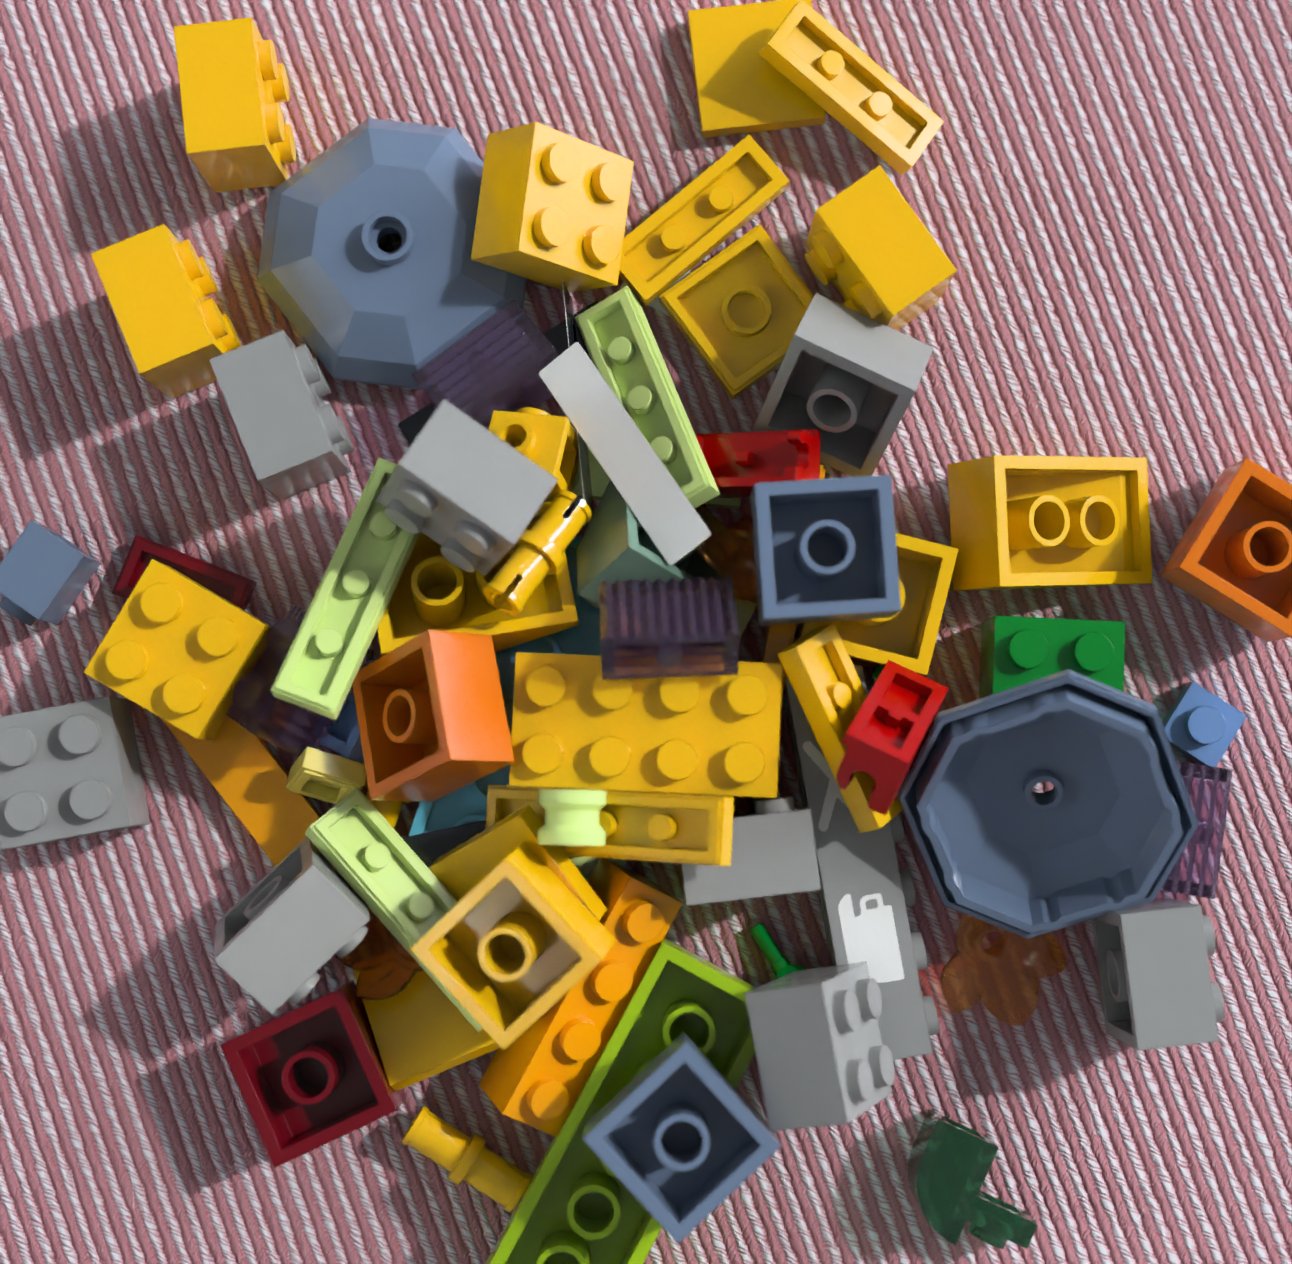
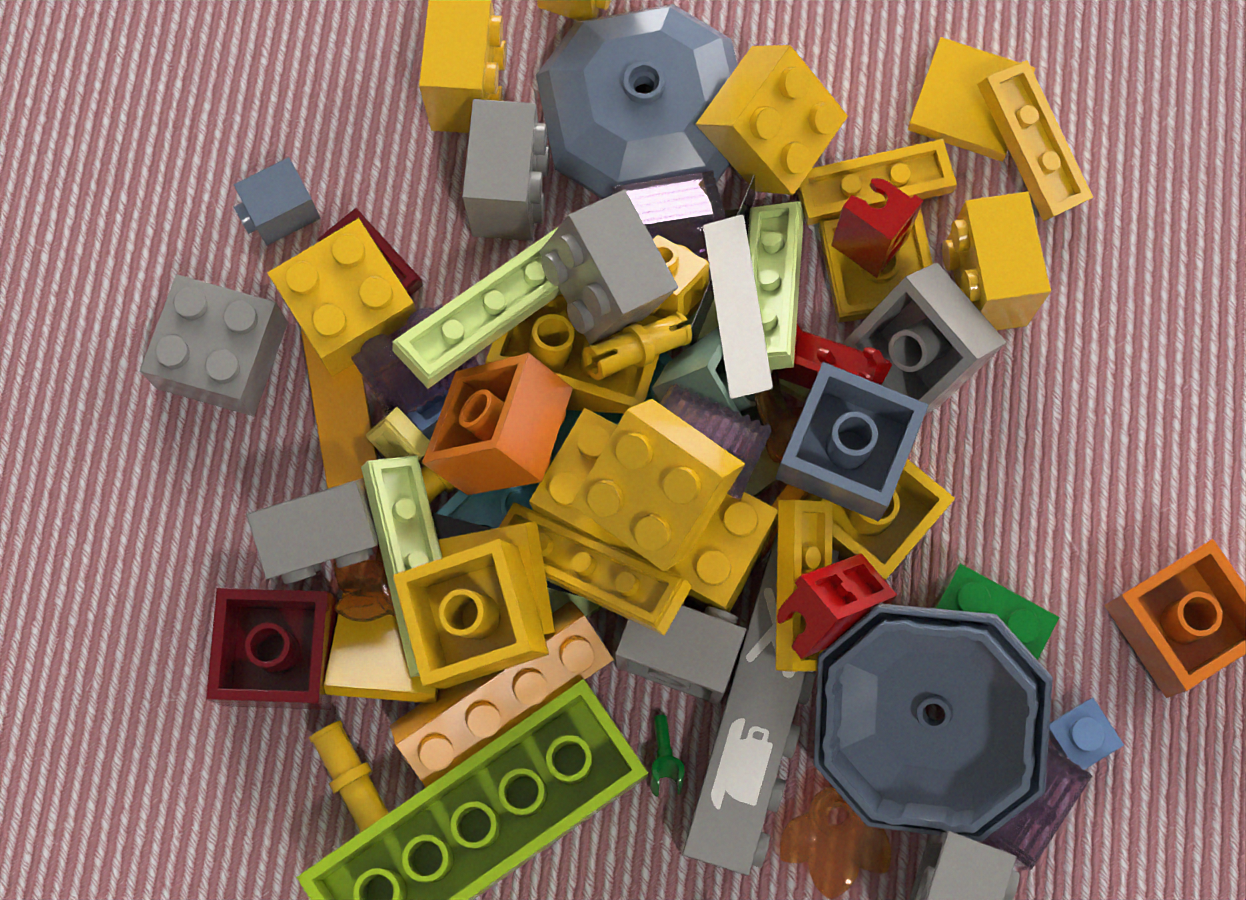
camera: 30 degrees right, 10 degrees down
(572, 817) = (563, 542): yellowish green wheel -> none
(645, 713) = (657, 484): none -> yellow brick
(680, 1137) = (520, 823): sand blue brick -> none
(729, 294) = (876, 234): none -> red hinge
(820, 1046) = (664, 812): light grey brick -> none
(1049, 522) = (1036, 521): yellow slope -> none

